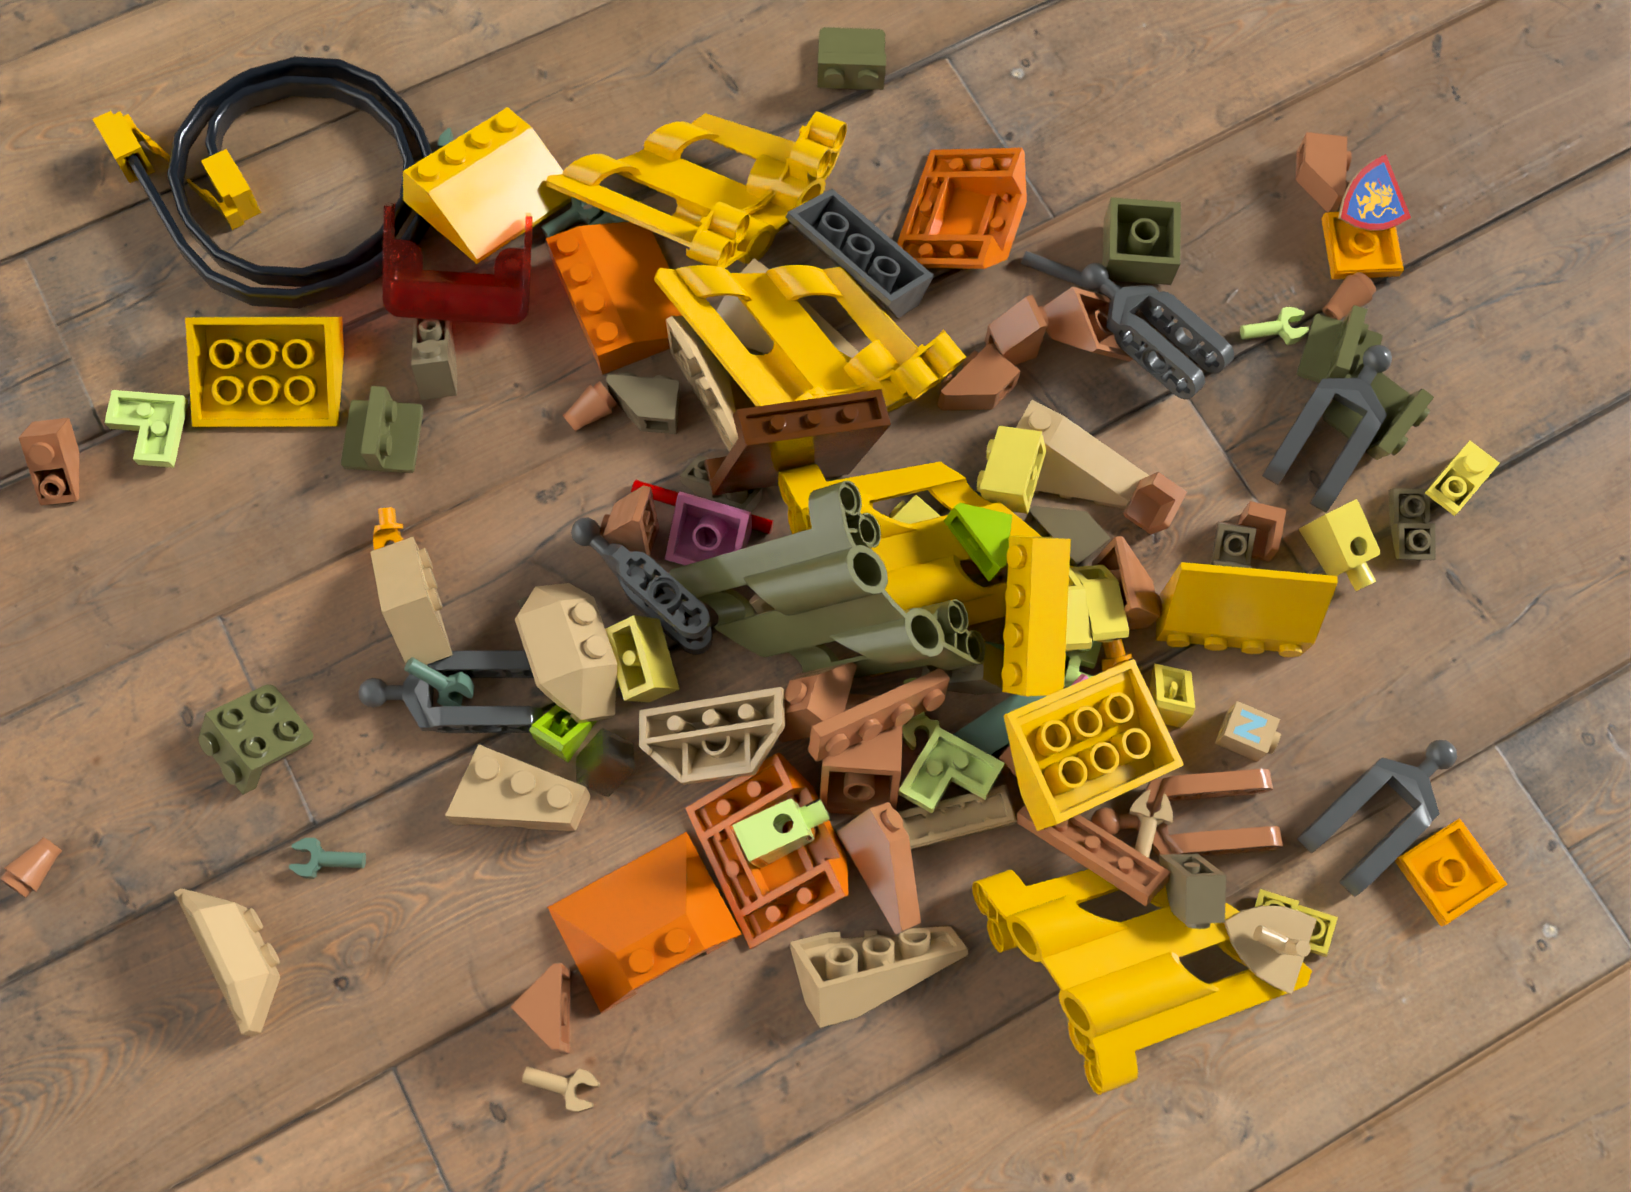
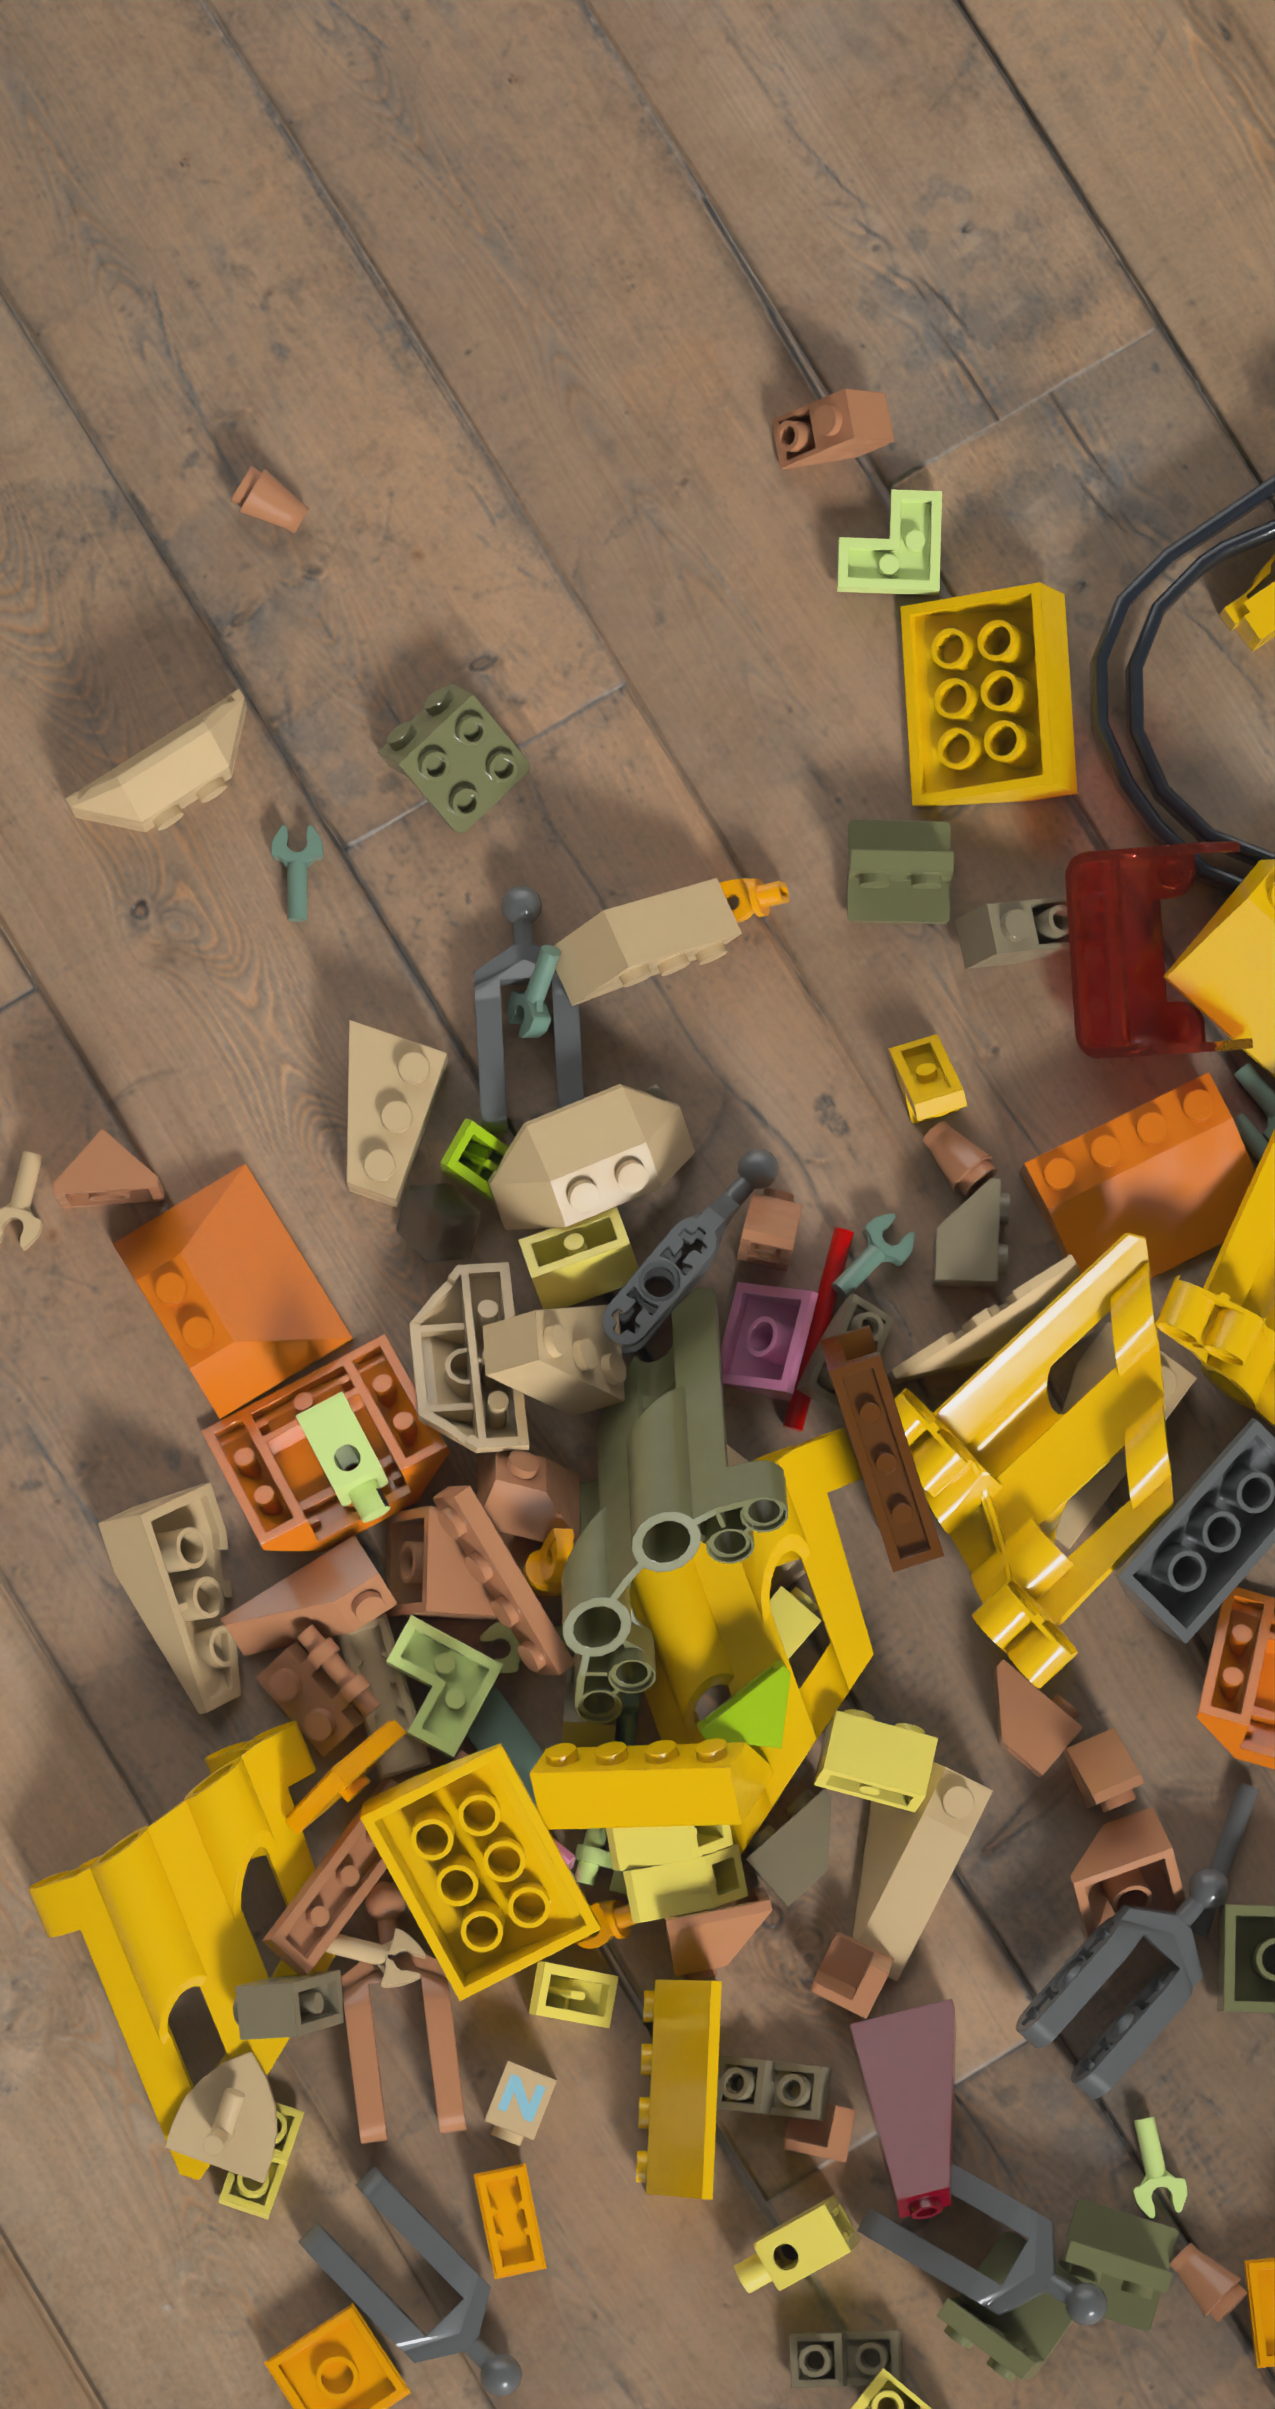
camera: 85 degrees right, 10 degrees up
(533, 422) = (927, 1079): none -> yellow slope
(652, 465) = (875, 1253): none -> sand green bar
(715, 668) = (557, 1358): none -> tan wedge
(866, 677) = (545, 1566): none -> light orange piece
(957, 869) = (310, 1696): none -> nougat plate
(1020, 840) = (346, 1777): none -> light orange plate
(1246, 463) = (910, 2092): none -> slope
(1331, 744) = (510, 2221): none -> light orange plate

